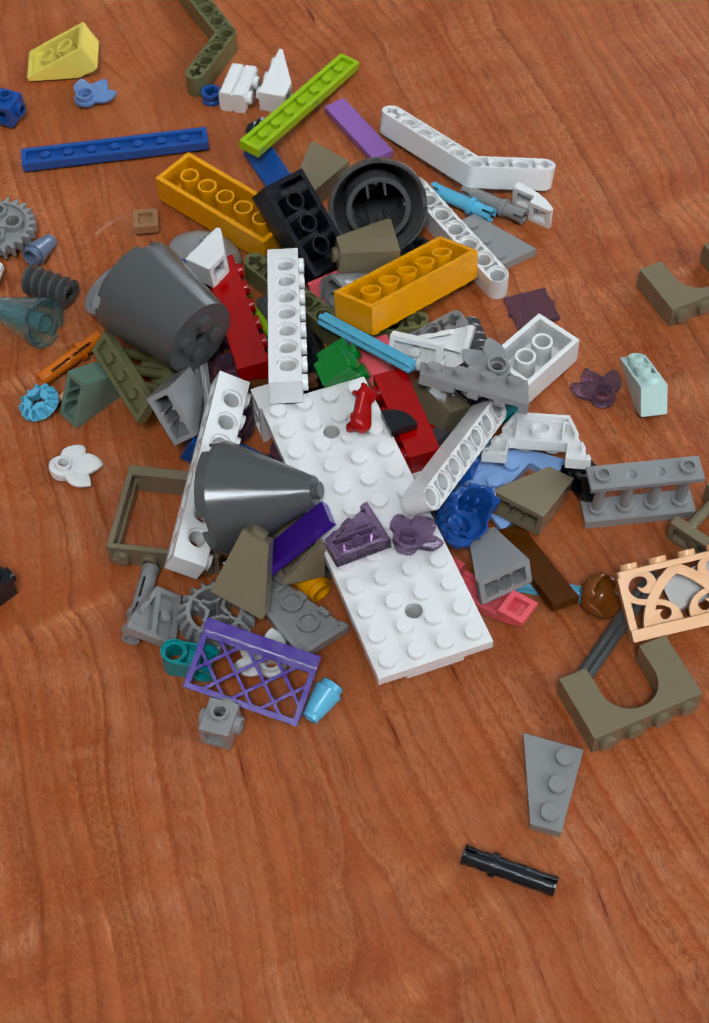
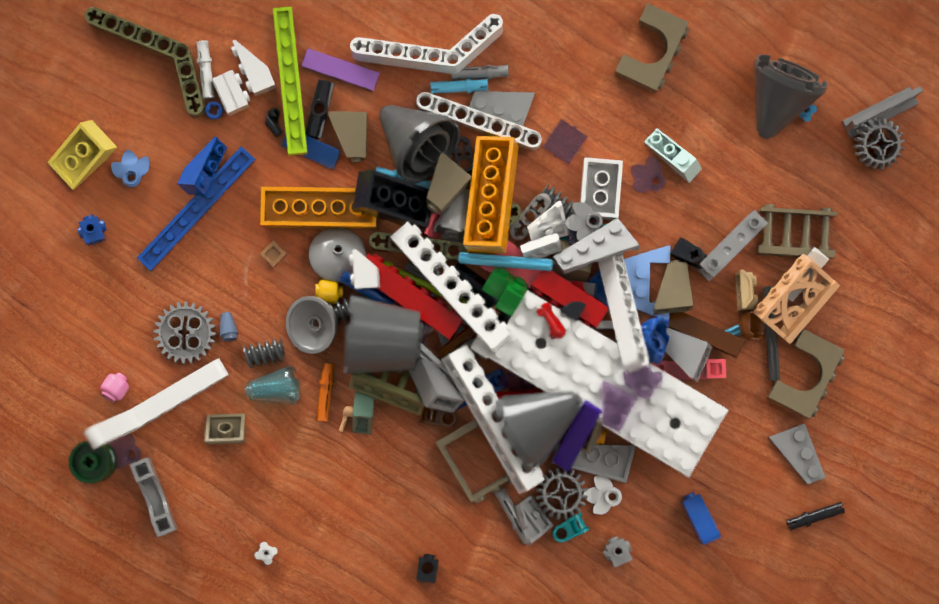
camera: 45 degrees left, 30 degrees up
(41, 409) = (340, 429): medium azure gear -> none
(74, 466) = (399, 458): white plate -> none
(155, 120) = (201, 170): none -> blue slope
(158, 451) = (436, 417): none -> reddish brown piece
(240, 56) = (204, 61): none -> white pin
(248, 572) = (570, 468): dark tan slope -> none
(262, 647) = (604, 498): dark purple fence -> none
(298, 146) = (322, 97): none -> black piece
(322, 700) = (655, 497): medium azure cone -> none
(353, 761) = (700, 518): none -> blue slope
(539, 208) = (512, 57): white slope -> none
(539, 432) = (652, 238): white wing -> none
(623, 546) = (745, 290): none -> tan slope

